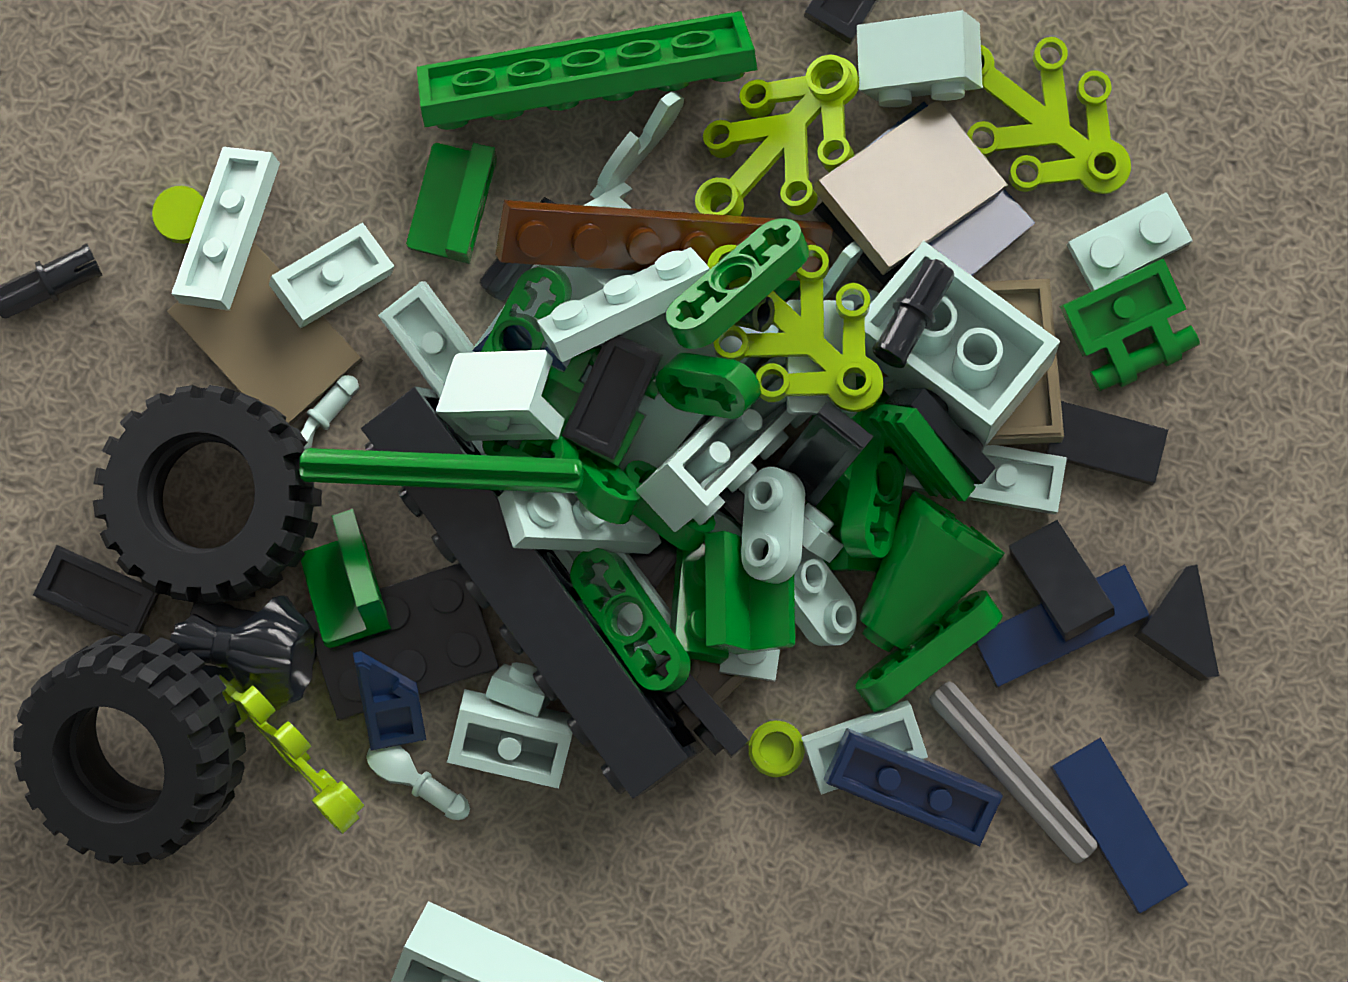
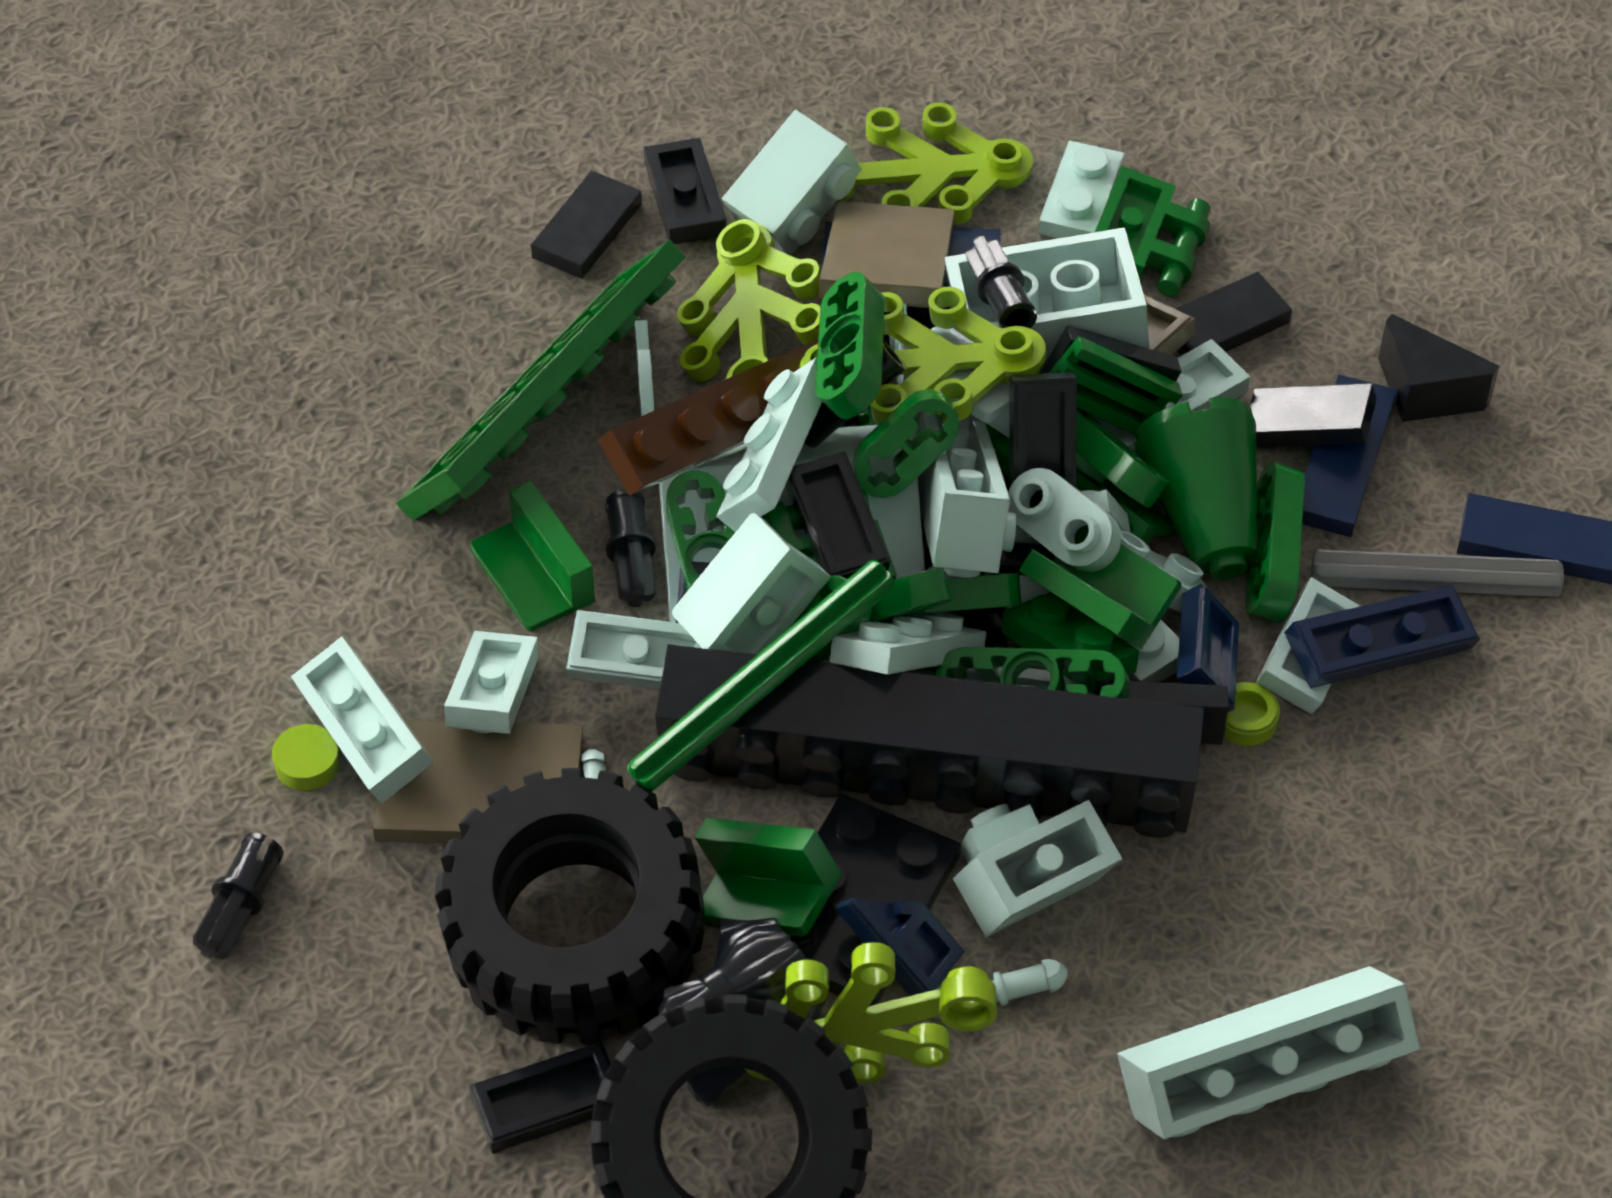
camera: 45 degrees left, 30 degrees down
(786, 691) = (1207, 642): none -> dark blue tile

